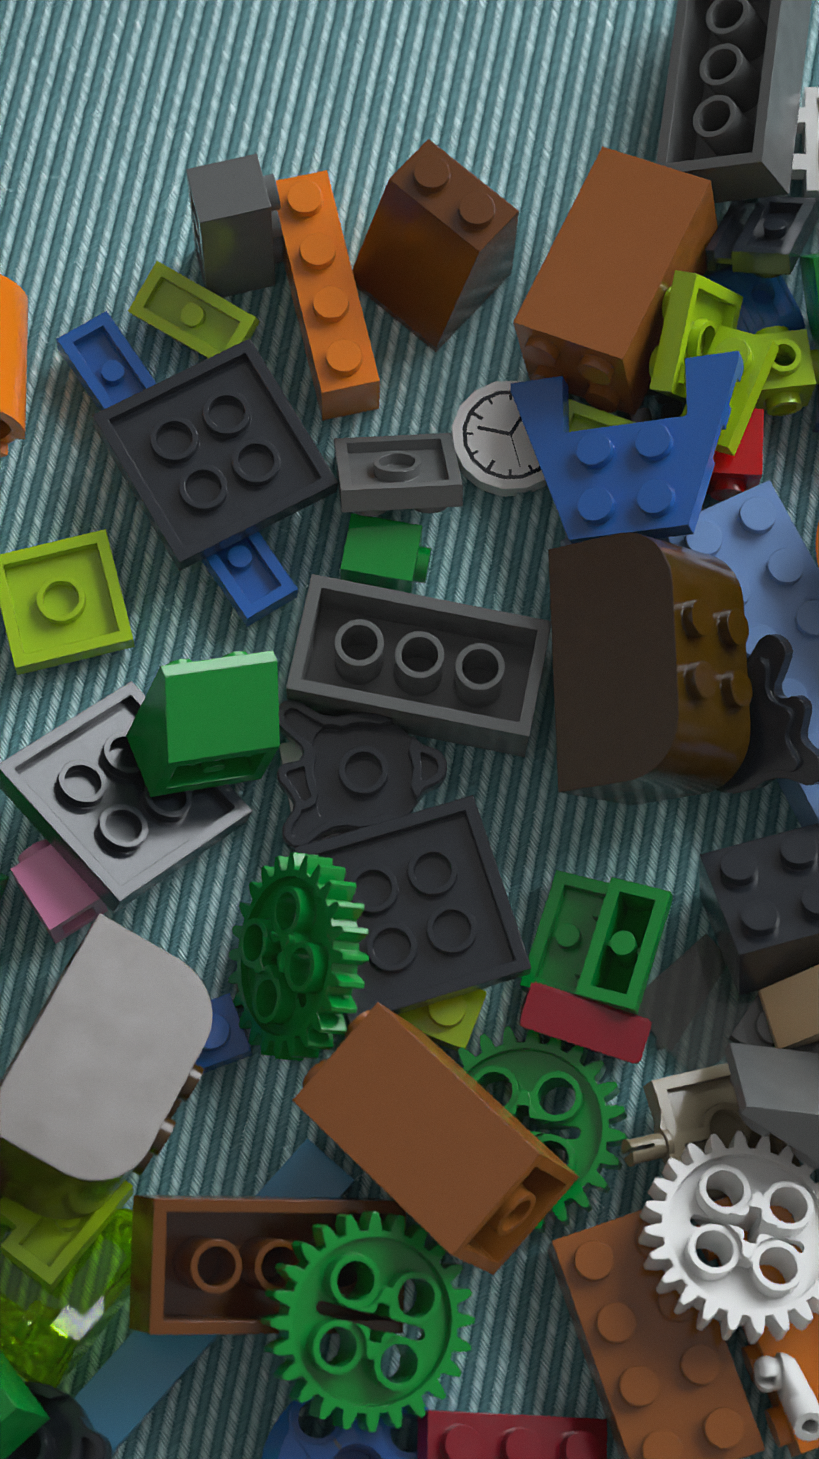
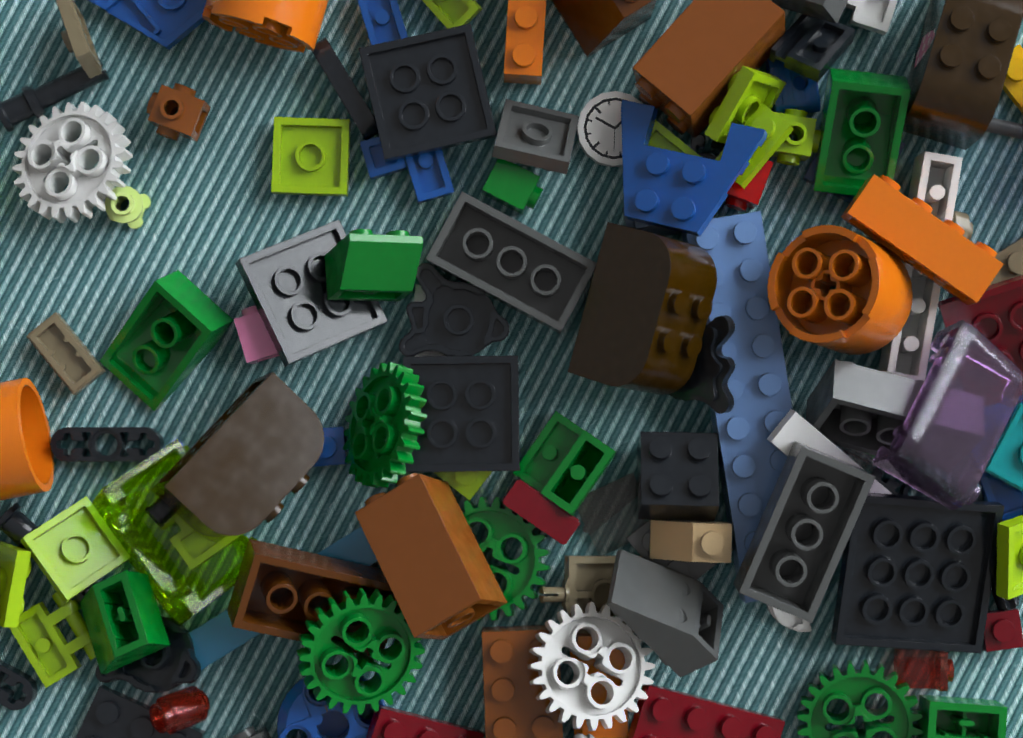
camera: 20 degrees right, 15 degrees up
(86, 489) = (345, 88): none -> black beam
(165, 580) = (375, 160): none -> blue plate

